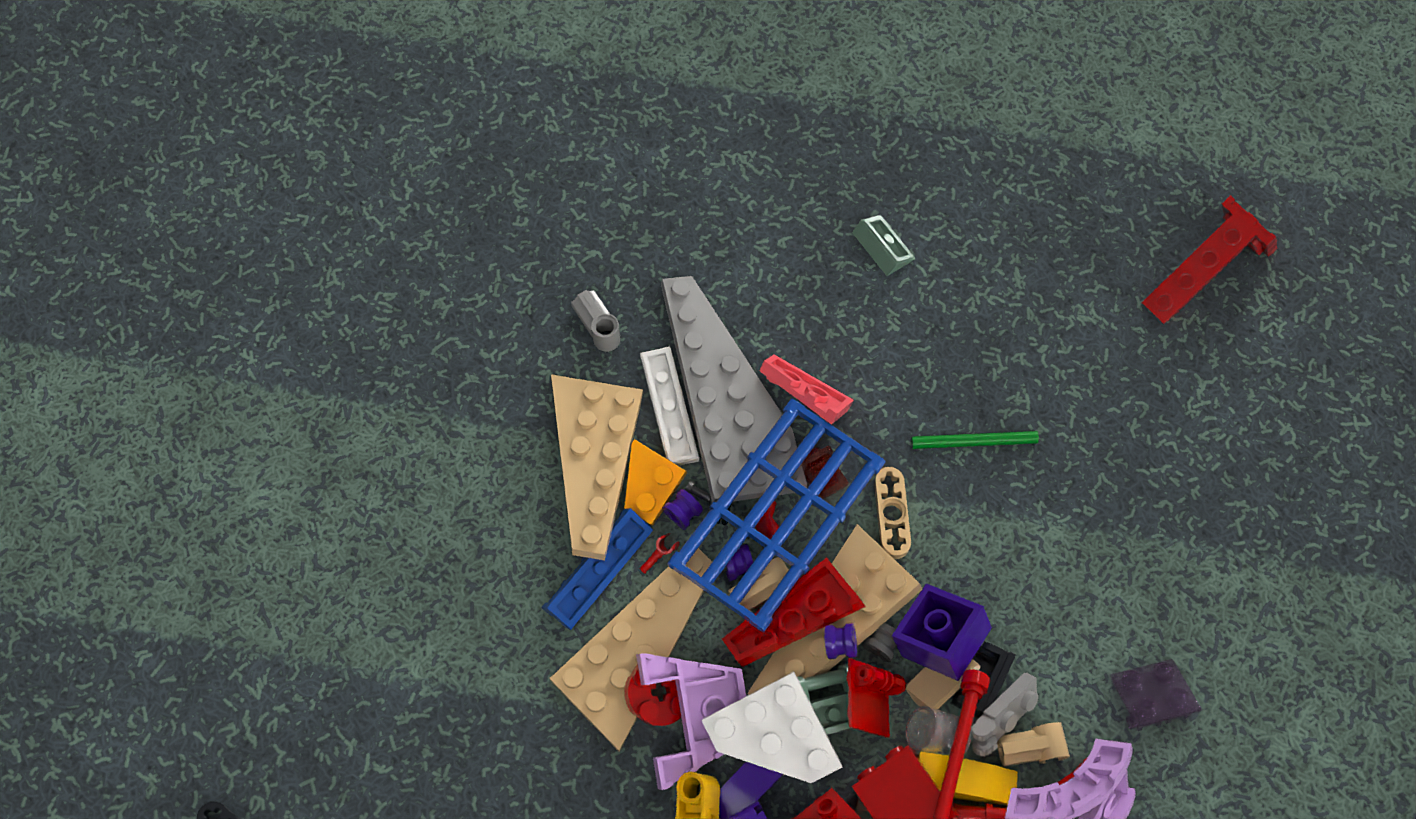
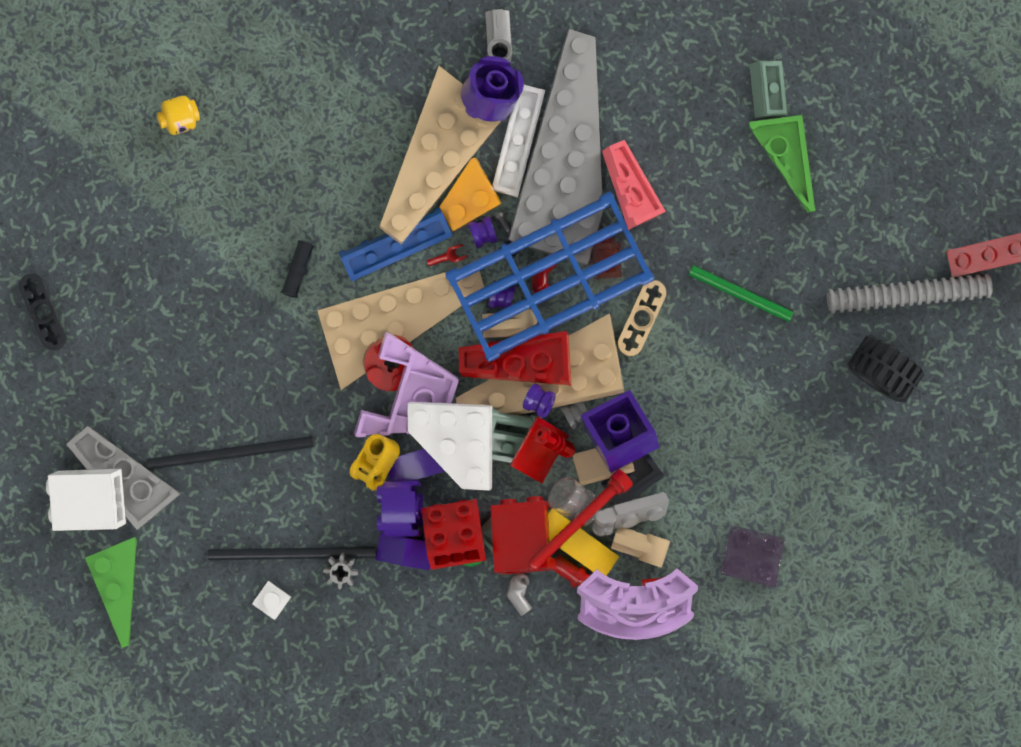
camera: 30 degrees right, 20 degrees up
(299, 552) = (178, 115): none -> yellow head
(506, 646) = (297, 269): none -> black pin
(617, 364) = (491, 89): none -> dark purple brick
(934, 284) = (786, 147): none -> bright green wing
(1135, 356) = (910, 293): none -> light grey piece
(1165, 430) = (885, 369): none -> black tyre

